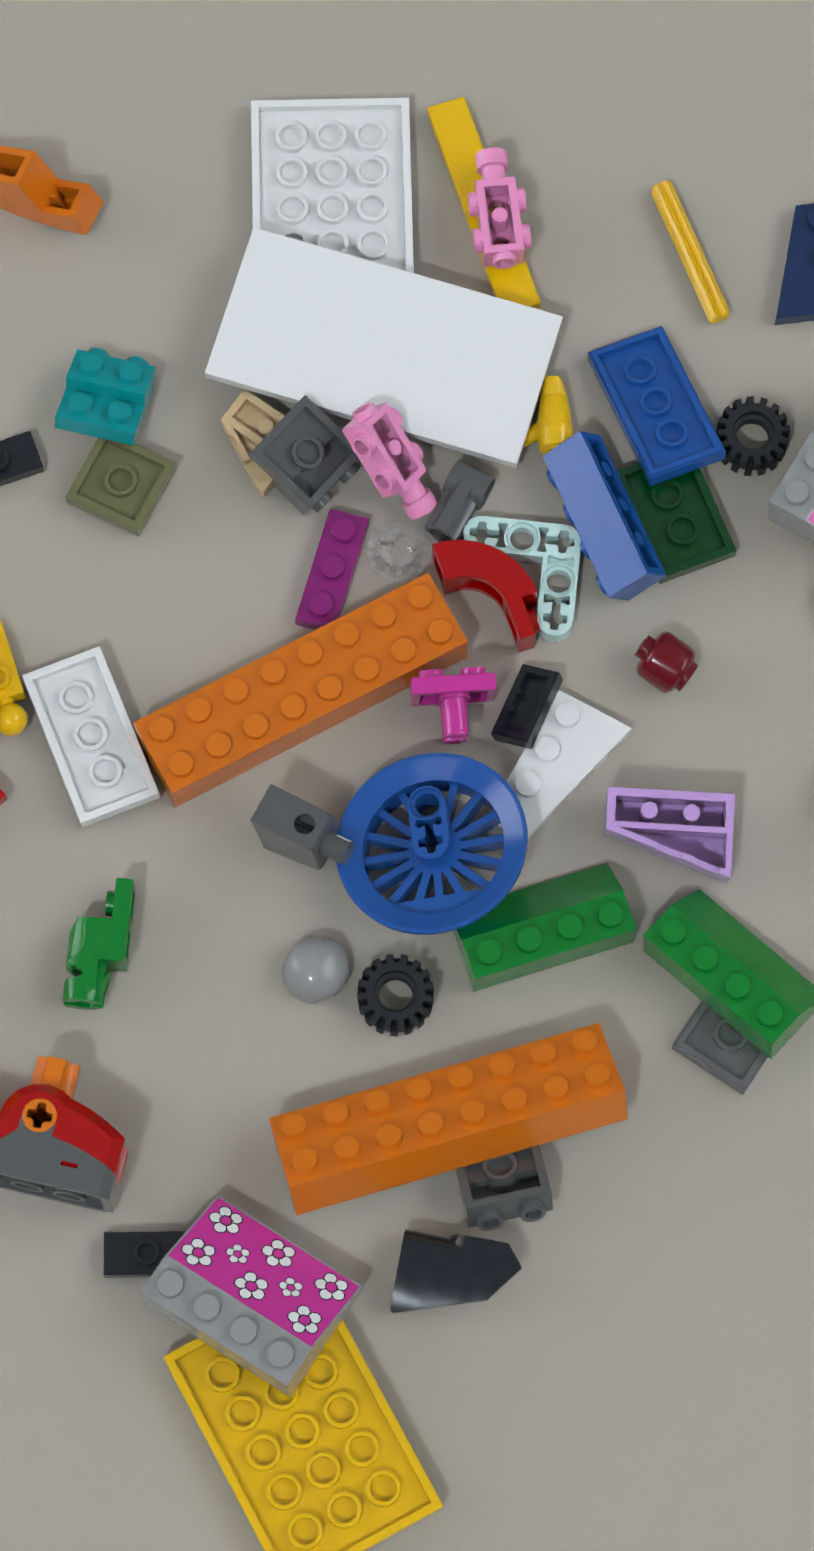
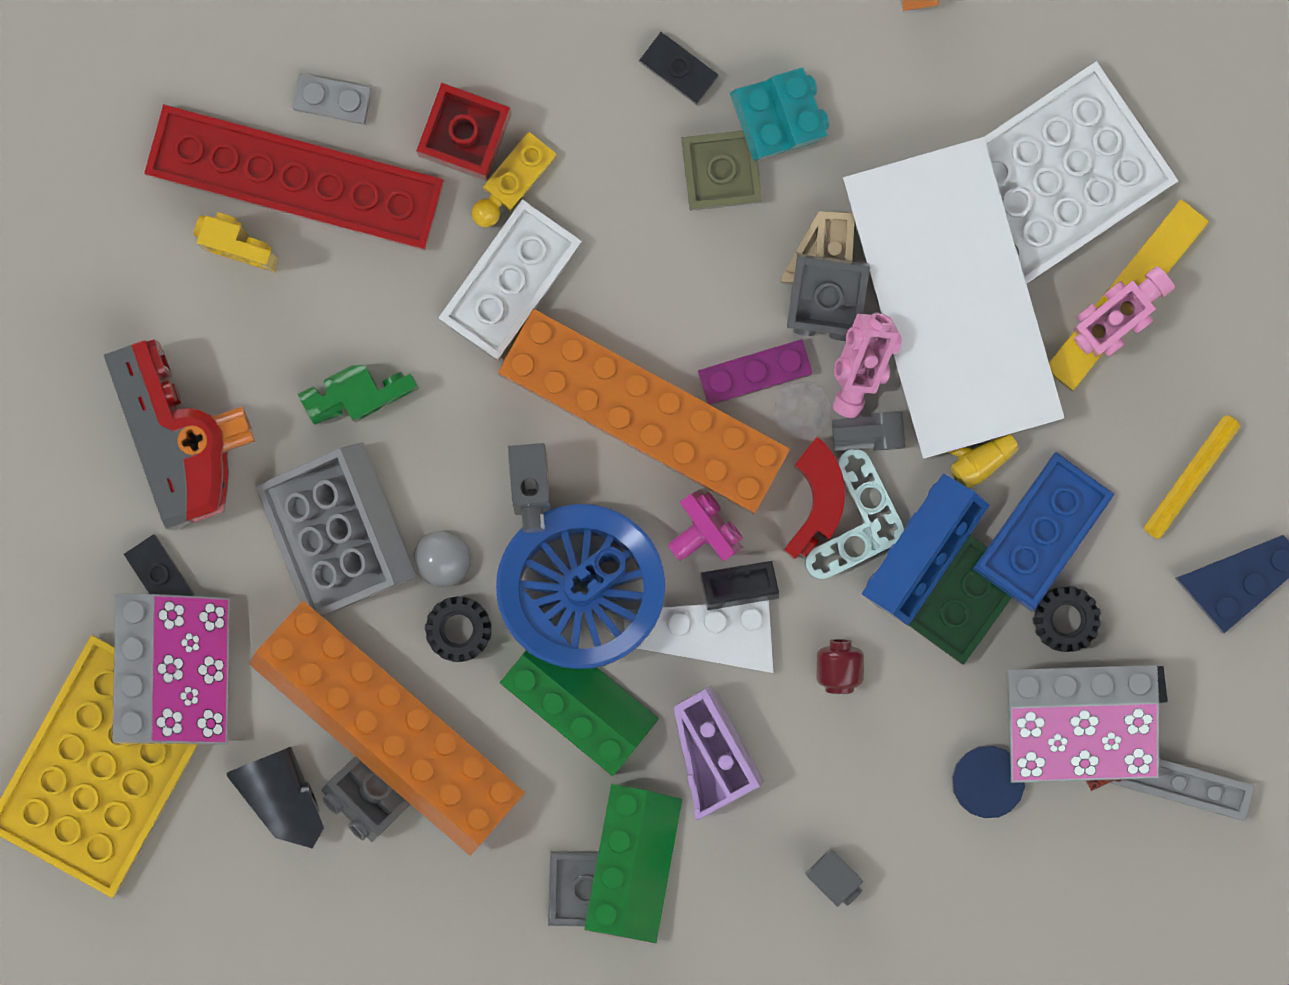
camera: 60 degrees right, 15 degrees up
(219, 1051) = (336, 530): none -> light grey slope

